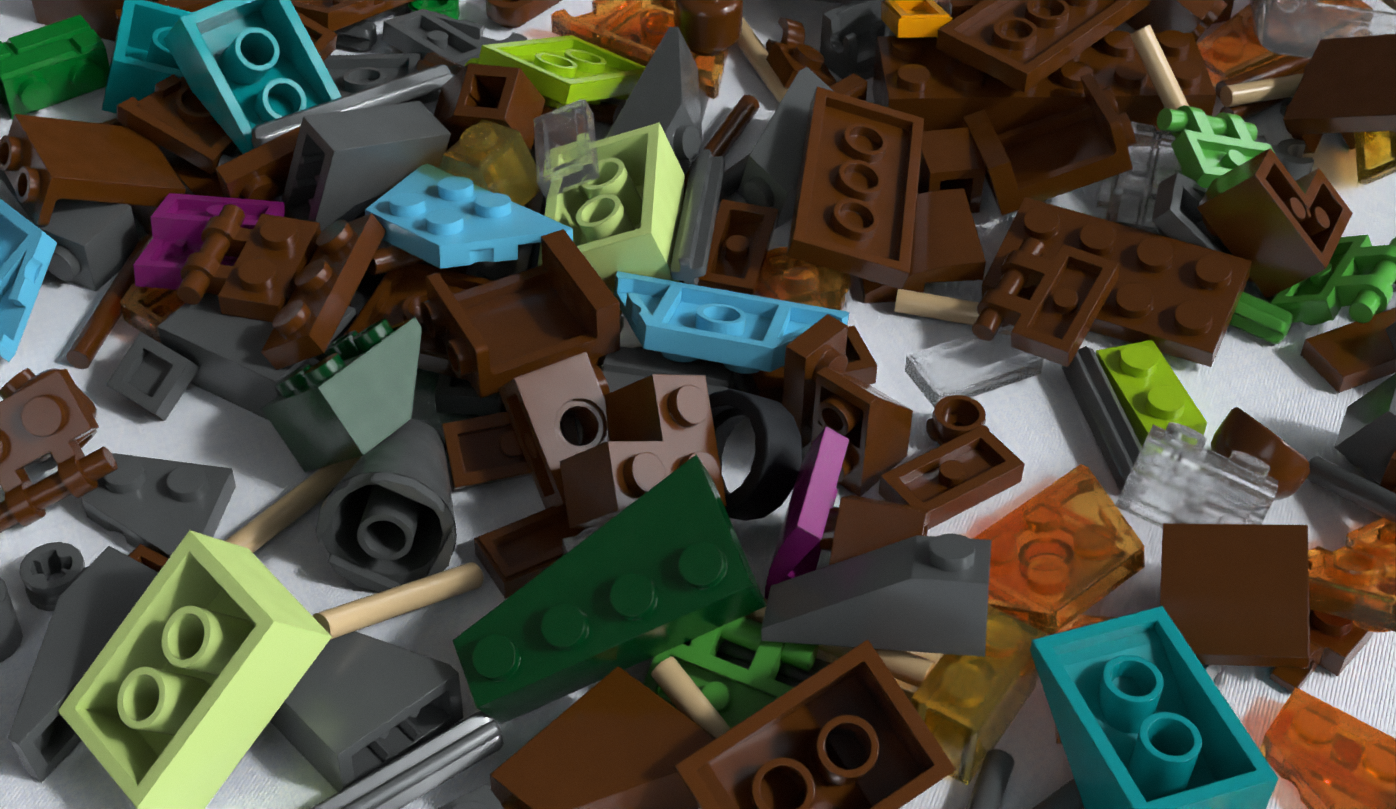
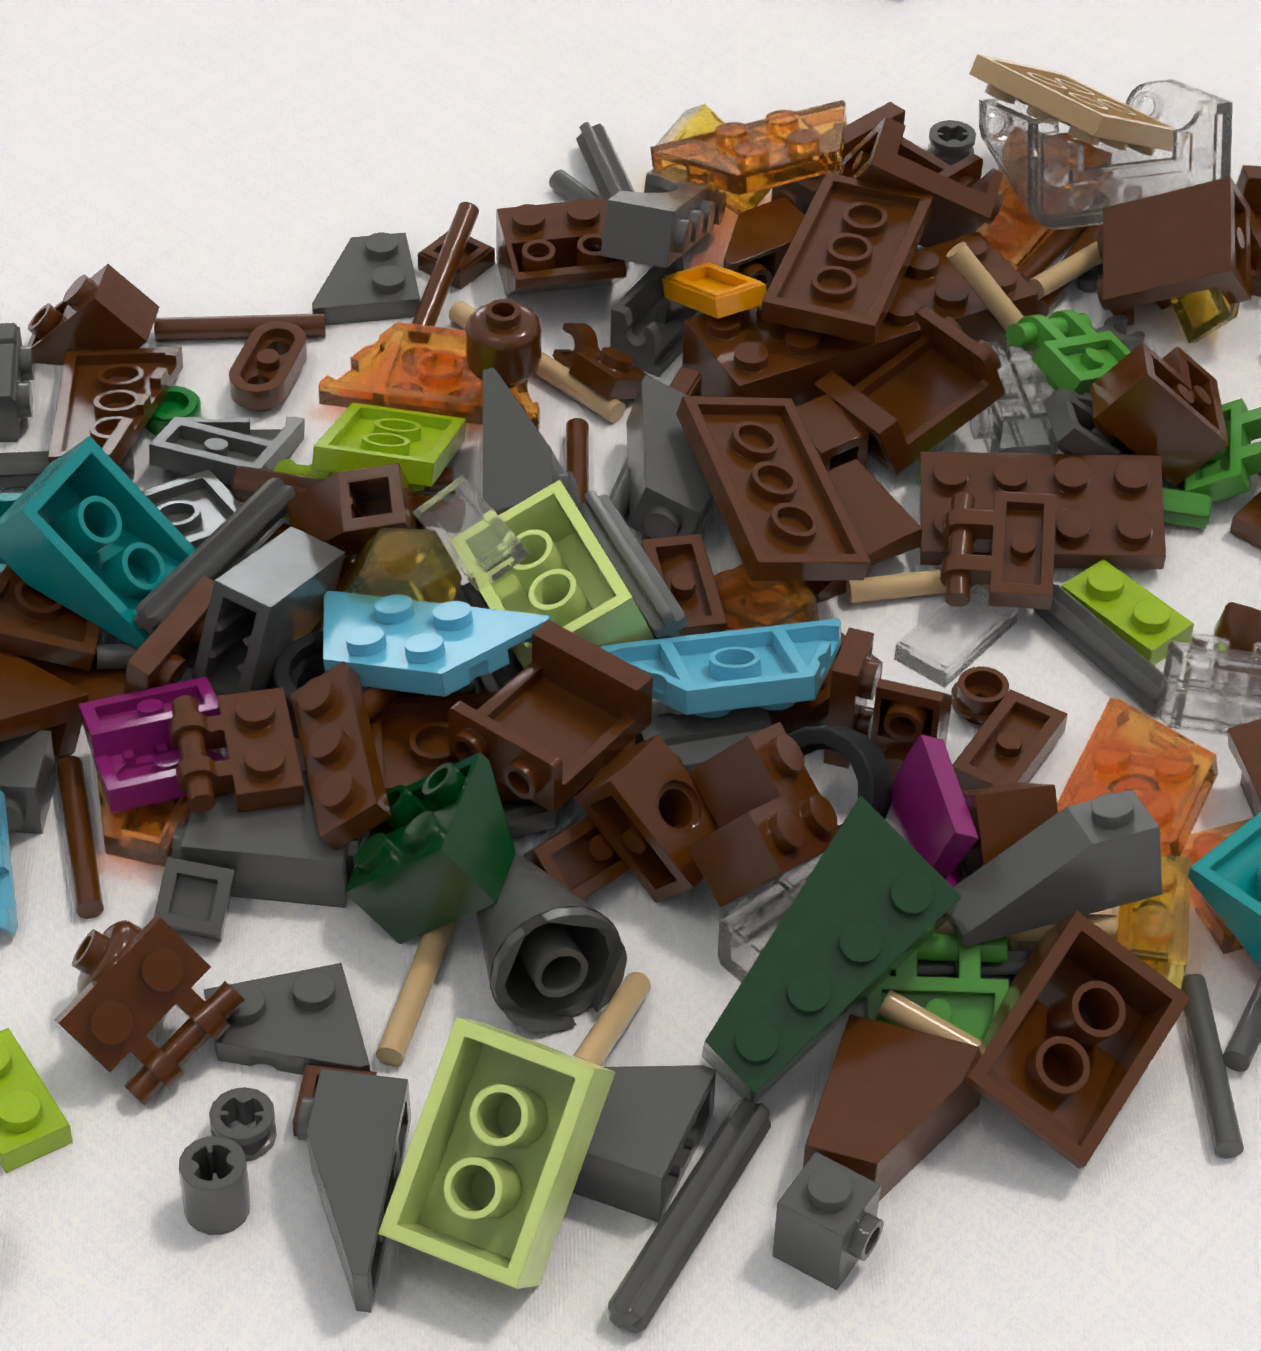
camera: 25 degrees left, 0 degrees up
(524, 548) = (677, 939): reddish brown tile -> none

